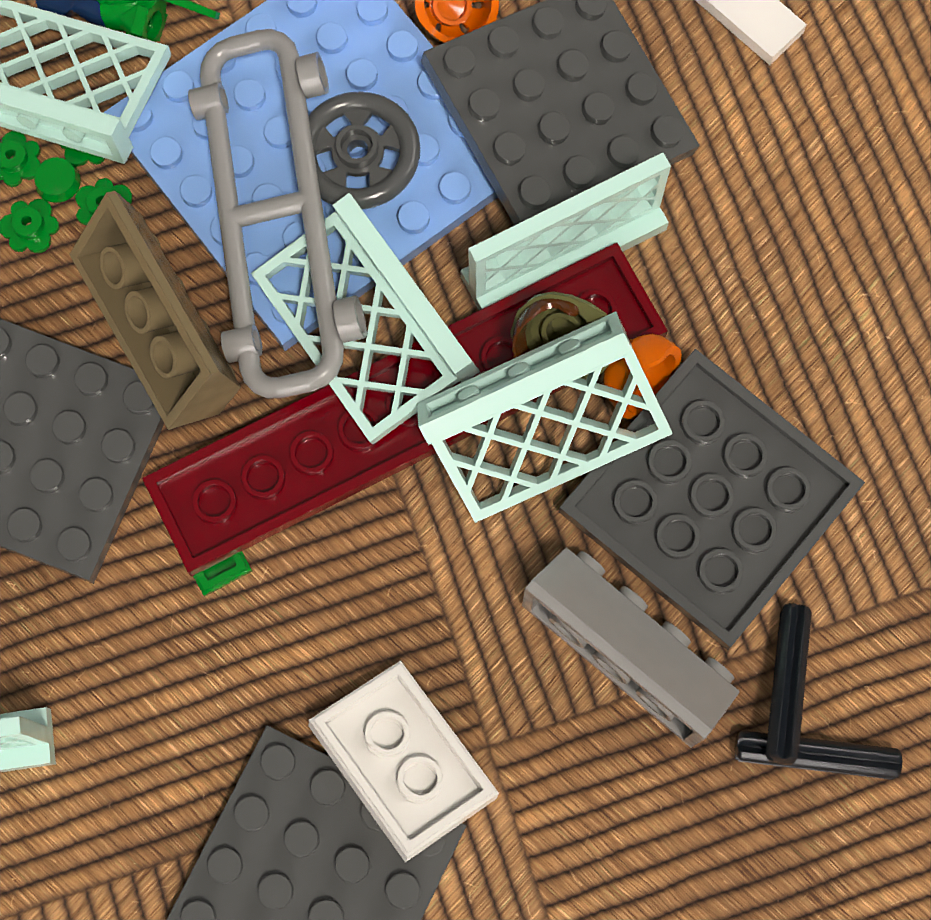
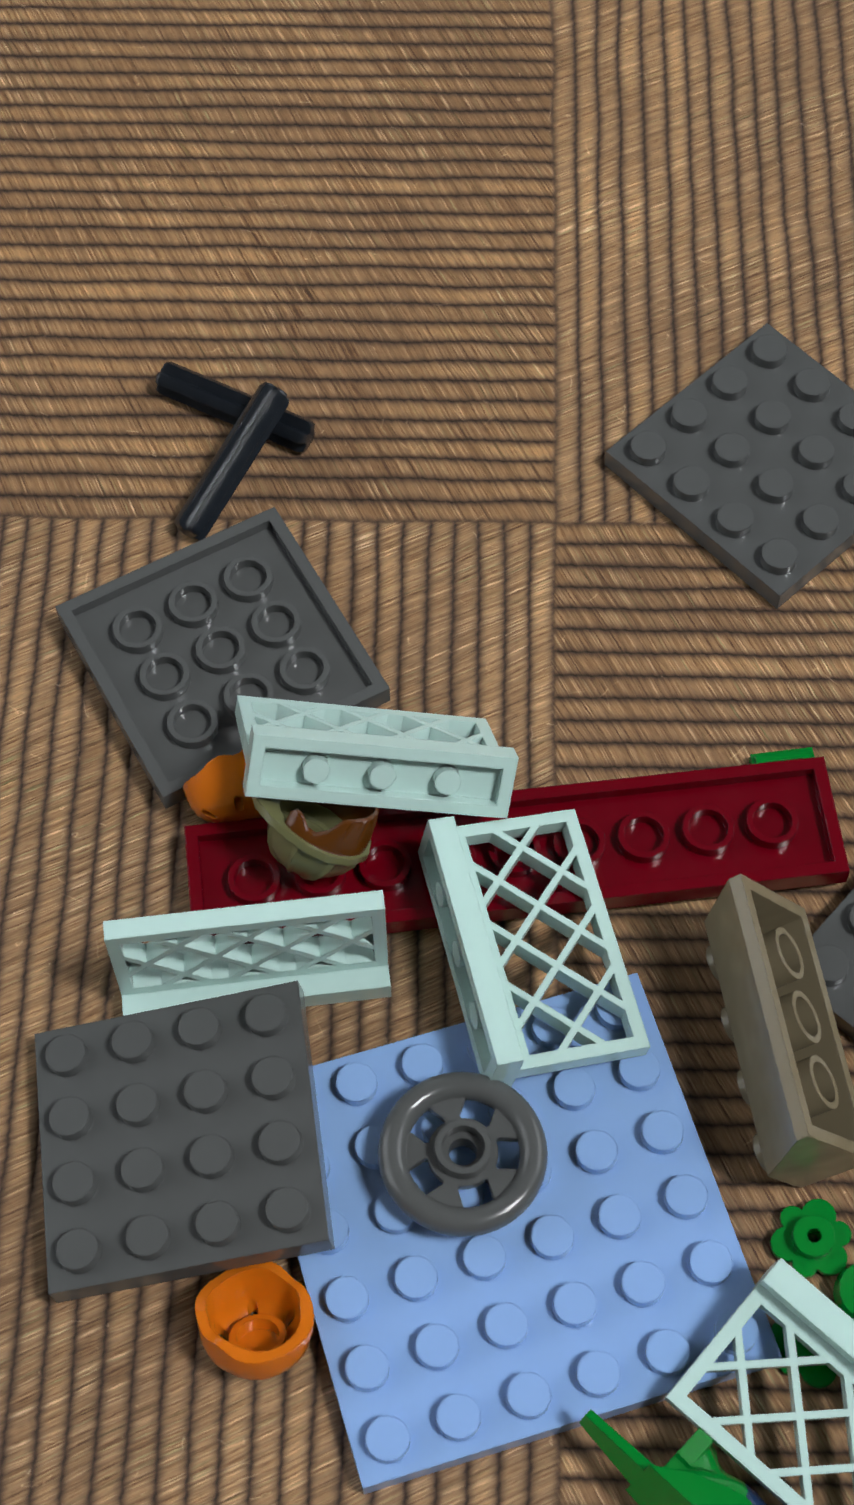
camera: 160 degrees left, 15 degrees down
(337, 319) = (503, 1254): light grey bar -> none
(403, 760) = (650, 517): white tile -> none
(630, 646) = (379, 531): light grey slope -> none

